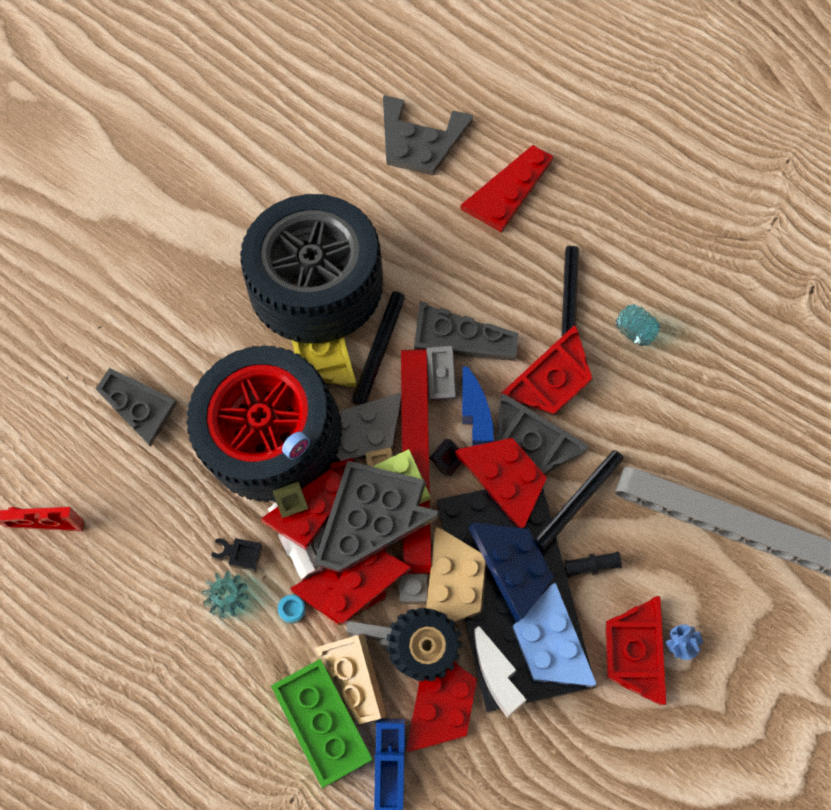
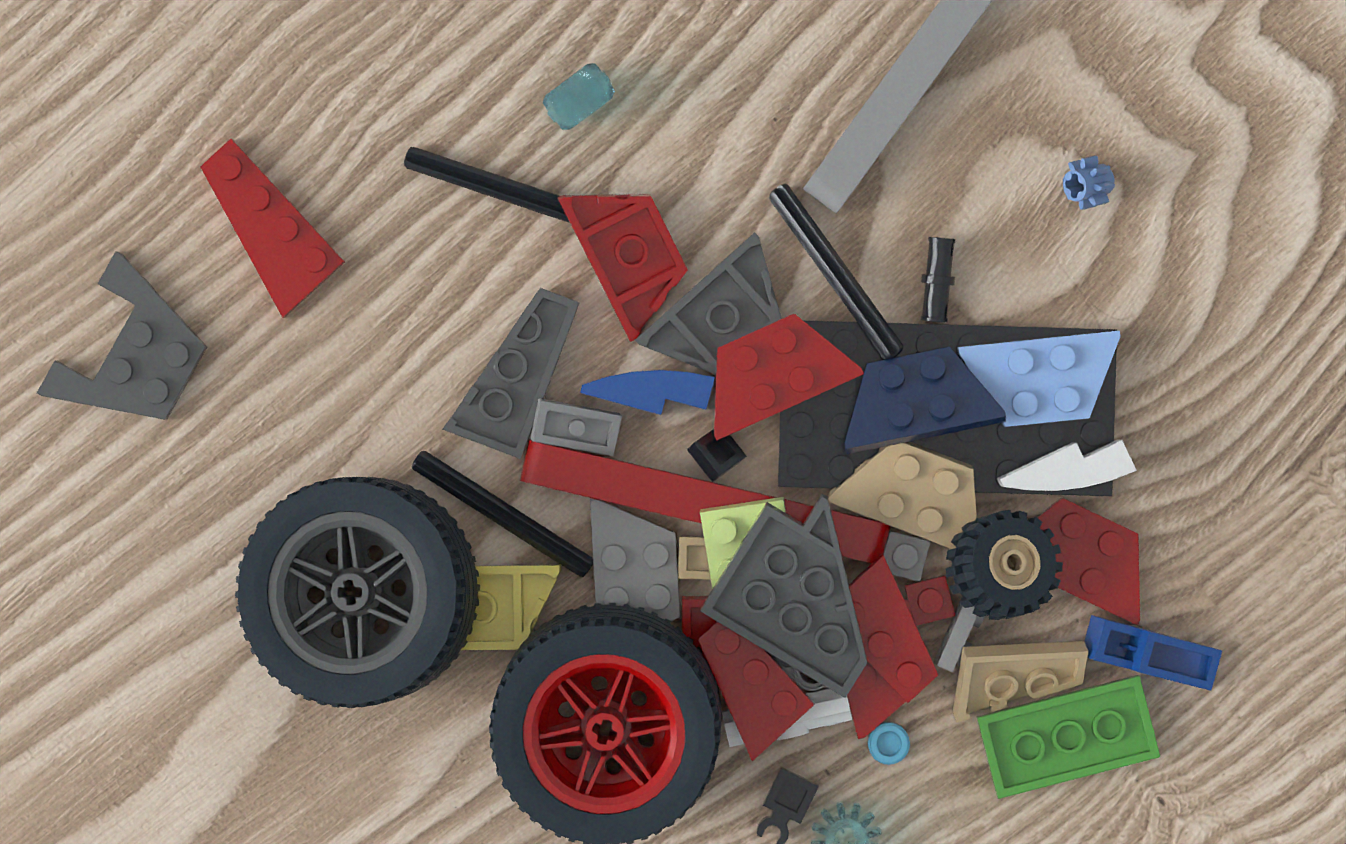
camera: 80 degrees left, 20 degrees up
(290, 499) = (741, 711): olive plate -> none
(295, 445) = (684, 688): light blue tile -> none
(387, 610) = (929, 600): none -> red plate
(636, 651) = (1079, 253): red wing -> none

